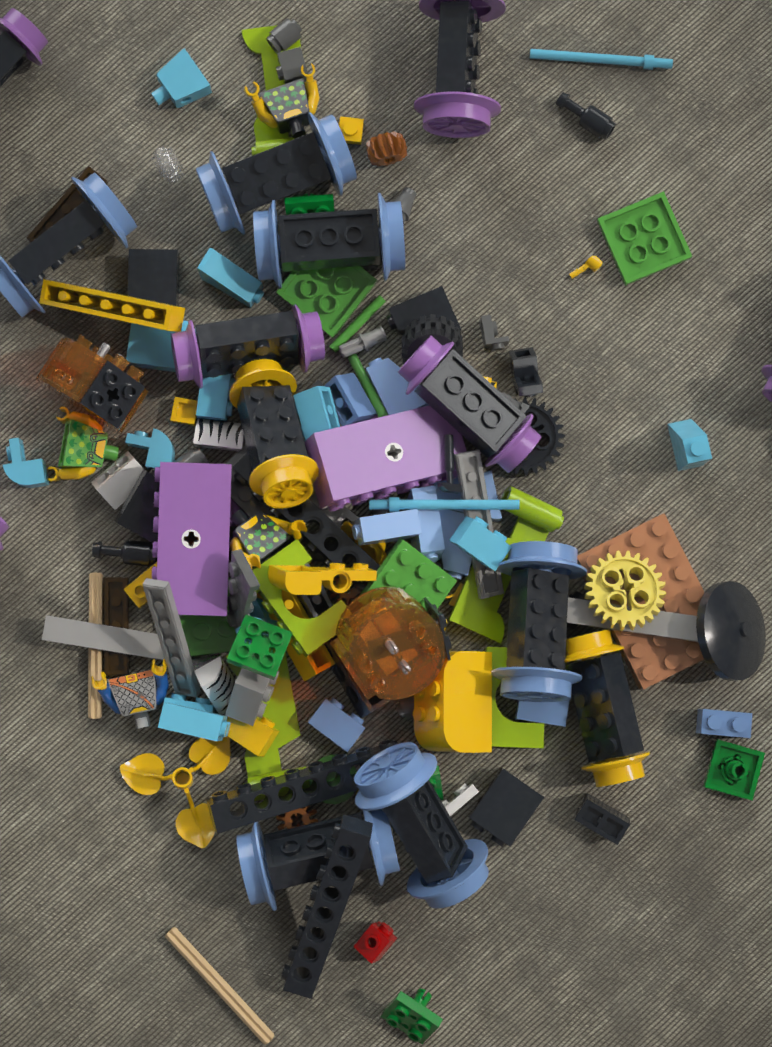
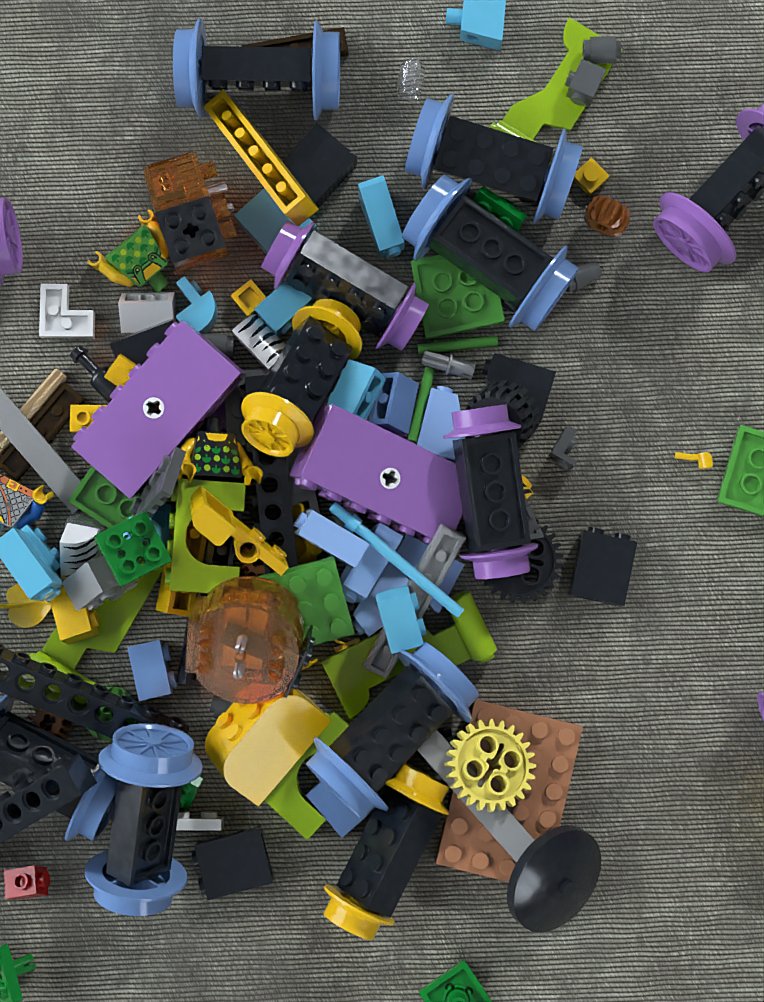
camera: 45 degrees right, 0 degrees up
(24, 473) = (72, 234): medium azure brick -> none
(62, 538) = (58, 320): none -> white plate
(142, 535) = (119, 370): none -> yellow plate
(171, 637) = (69, 476): light grey tile -> none
(287, 104) = (552, 109): torso -> none
(449, 487) = (428, 530): black piece -> none
(525, 372) = (565, 505): black brick -> none
(586, 394) = (602, 567): none -> black brick
(602, 819) = (307, 944): black hinge -> none
(689, 444) = (655, 685): medium azure slope -> none
(724, 723) = (482, 952): medium blue brick -> none

